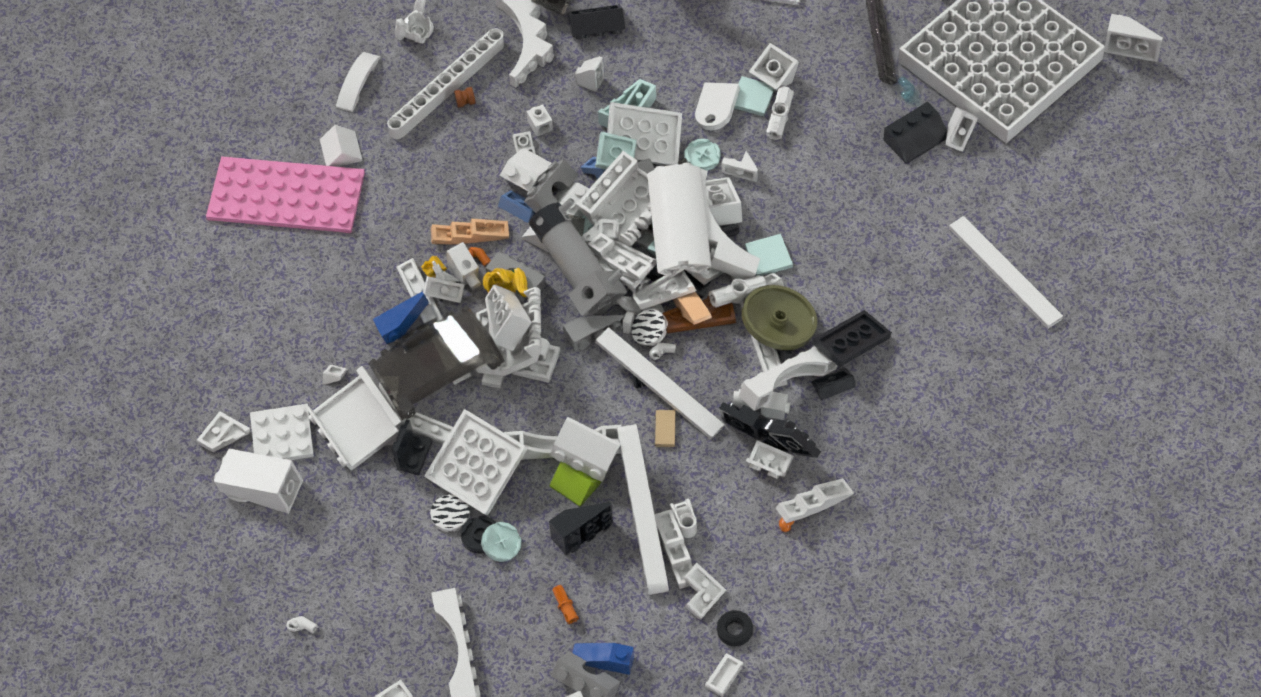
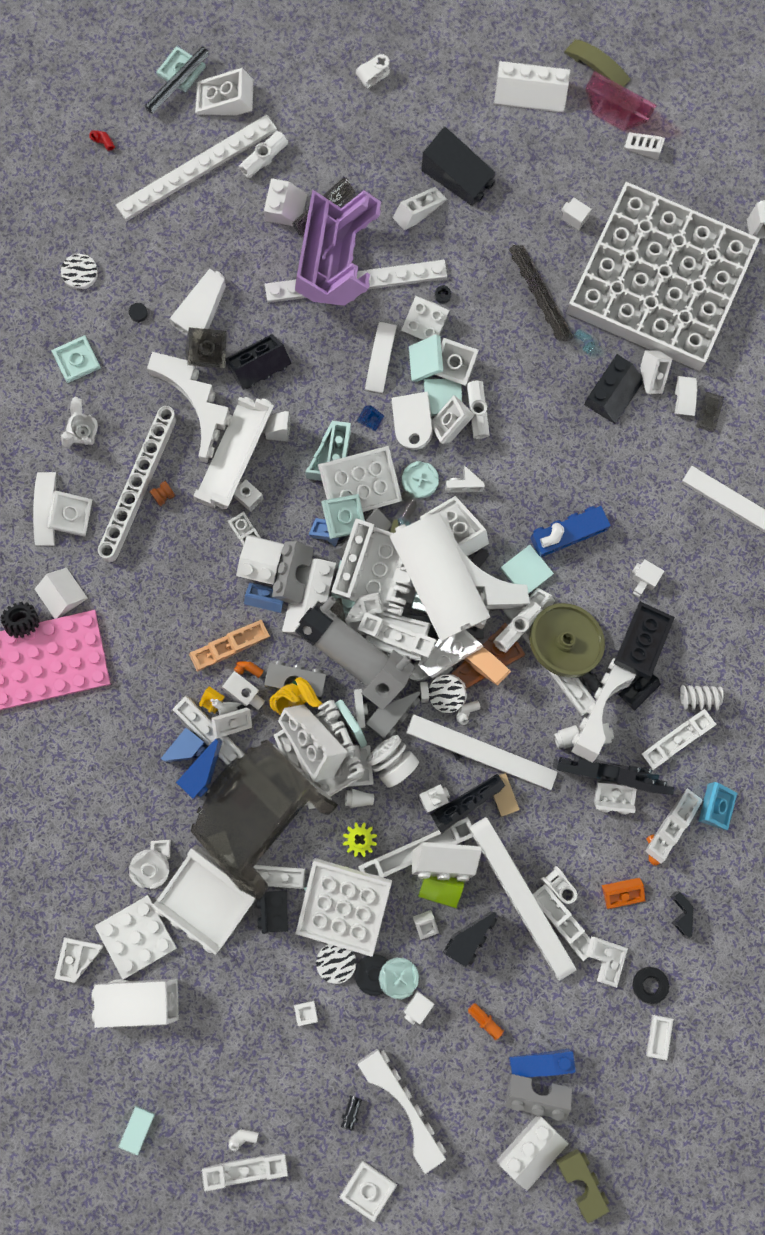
camera: 30 degrees left, 20 degrees up
(211, 586) = (136, 1130): none -> light aqua tile
(290, 651) = (244, 1171): none -> white slope
(296, 155) = (22, 627): none -> black tyre
(318, 382) = (149, 869): none -> white tile
(376, 88) = (69, 513): none -> white tile
(389, 296) = (185, 747): none -> medium blue slope
(404, 542) = (305, 1013): none -> white plate
(405, 639) = (351, 1113): none -> black pin
(507, 571) = (417, 1008): none -> white brick
(509, 417) = (359, 831): none -> neon yellow gear
(530, 387) = (357, 798): none -> white cone
(541, 82) = (233, 452): none -> white cylinder
(545, 510) = (425, 924): none -> white slope
(549, 319) = (351, 723): none -> light aqua tile
(564, 316) = (361, 709): none -> white plate
(573, 360) = (392, 760): none -> white wheel
(599, 407) = (434, 798): none -> white brick
(656, 413) = (464, 804): none -> black wing
(679, 93) = (370, 417): none -> clear blue slope
(707, 48) = (380, 357): none -> white slope
(743, 545) = (623, 893): none -> orange slope
(749, 58) = (426, 358): none -> light aqua tile
(751, 114) = (451, 420): none -> white slope
(762, 28) = (425, 318): none -> white plate
(789, 582) = (684, 921): none -> black slope
(791, 19) = (438, 291): none -> black bush
(804, 228) = (555, 537): none -> white arm
(822, 234) = (576, 529): none -> blue brick
(851, 434) = (678, 739): none -> white slope
(865, 499) = (717, 806): none -> medium azure slope
(878, 290) = (646, 575): none -> white brick
(887, 405) = (701, 697): none -> white piece
(982, 158) = (686, 395): none -> white slope
(1001, 178) = (710, 411): none -> clear smoke plate

